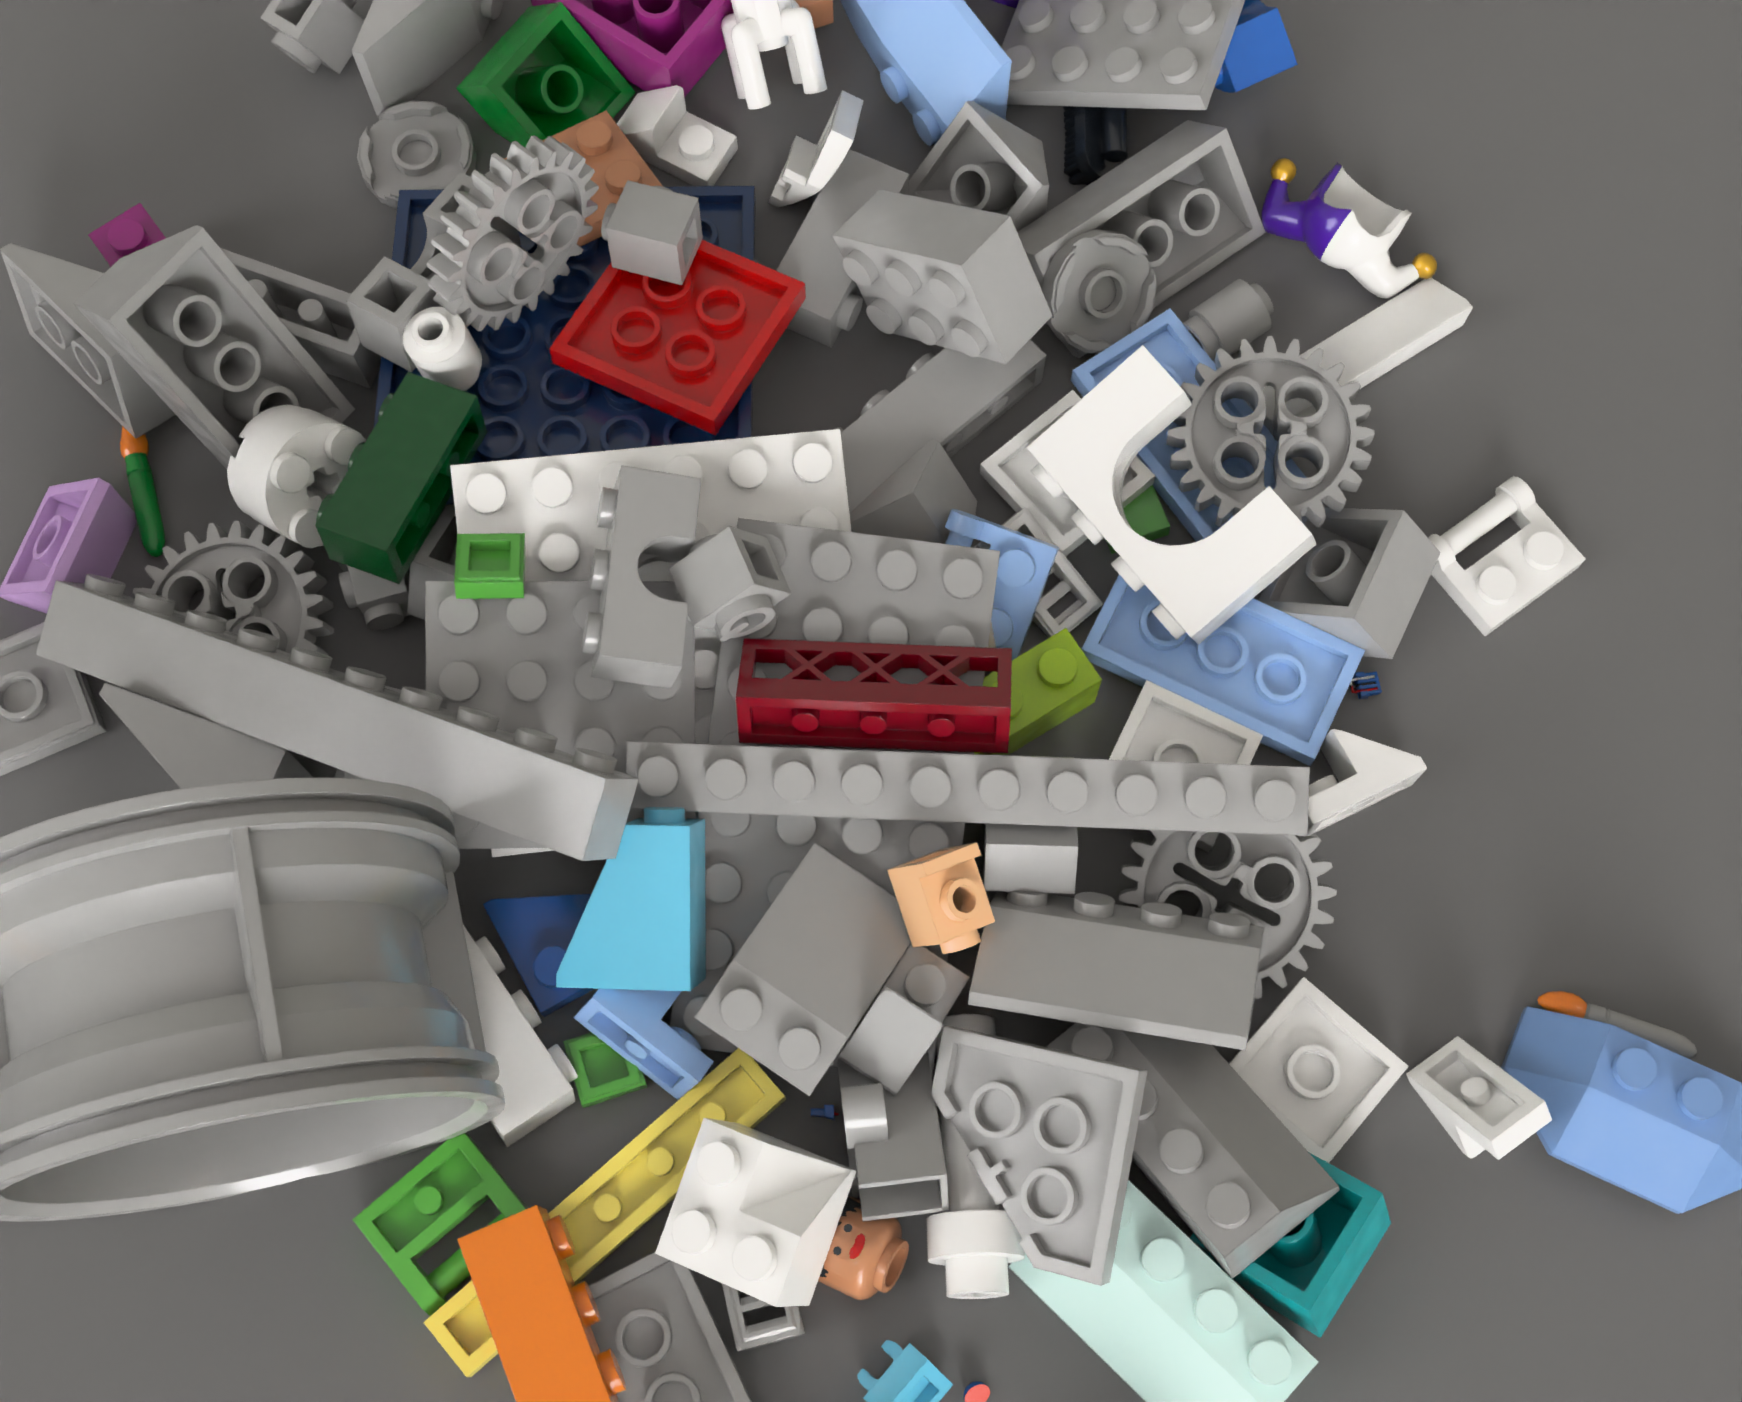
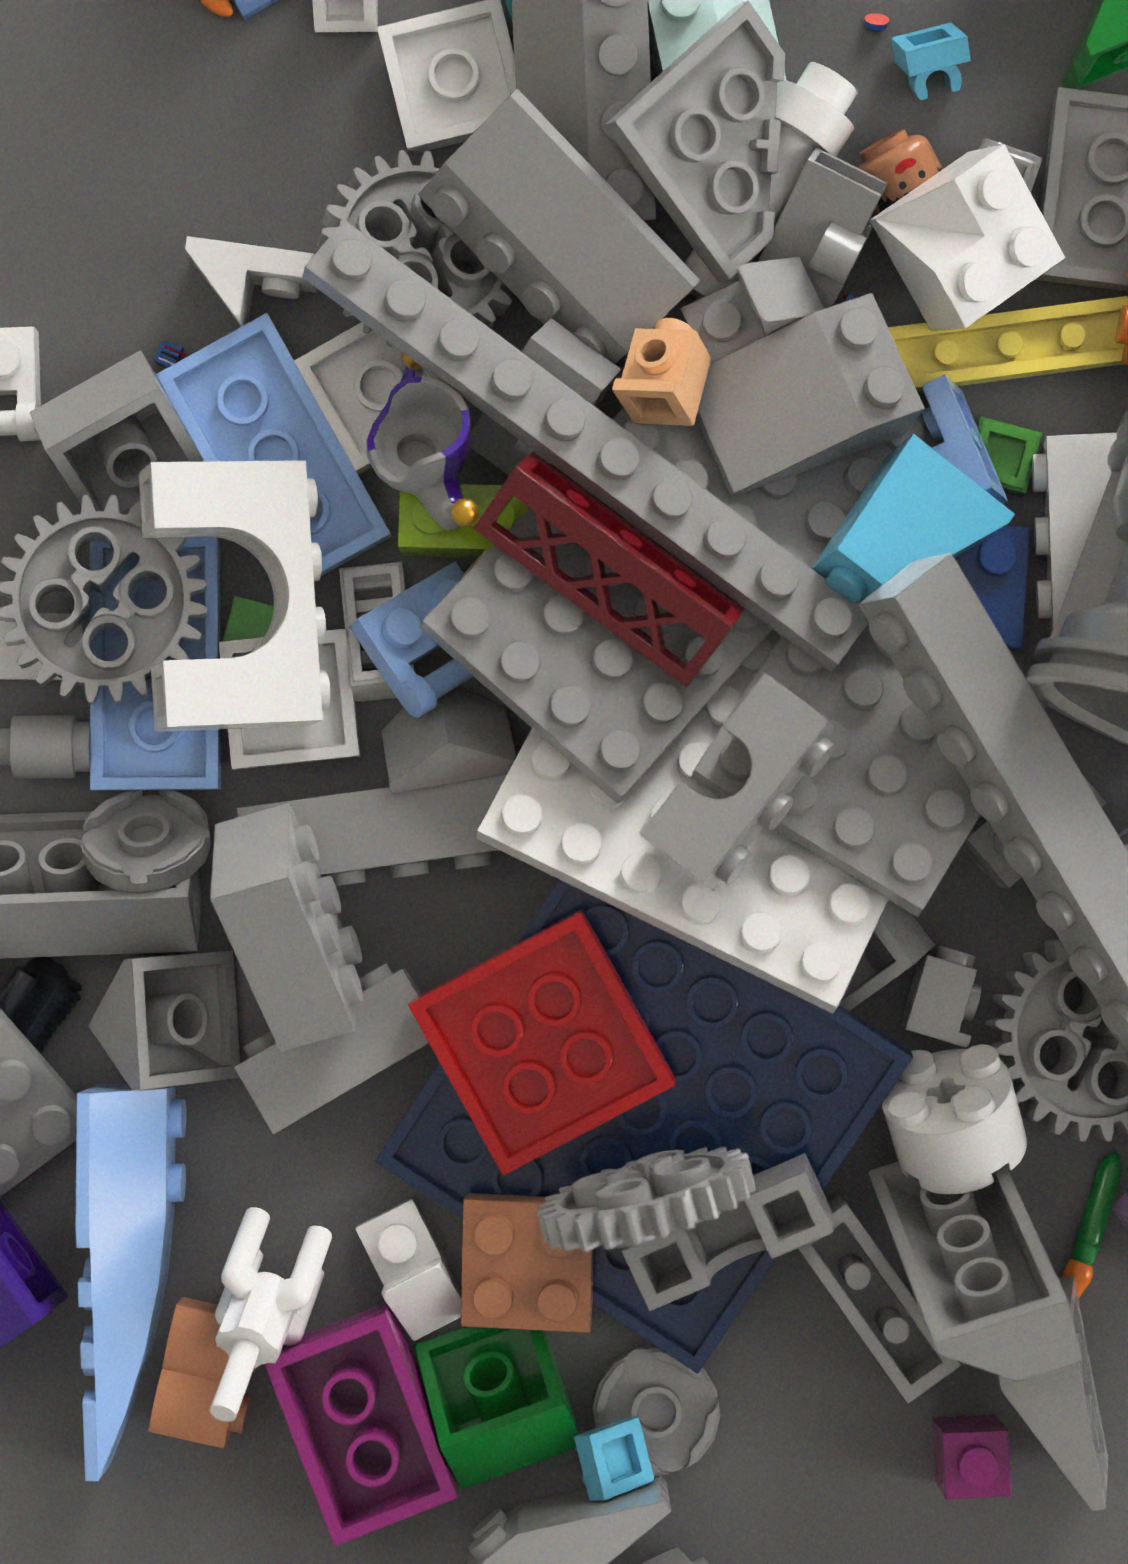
camera: 145 degrees left, 15 degrees up
(400, 477) = (880, 1039): dark green brick -> none
(425, 88) = (614, 1459): none -> medium azure tile
(442, 348) = (761, 1124): white brick -> none
(490, 566) = (860, 886): bright green tile -> none
(653, 231) = (513, 1137): light grey brick -> none
(730, 583) = (672, 731): light grey brick -> none
(813, 165) = (295, 1144): white slope -> none
(1102, 701) = (423, 445): none -> light grey piece

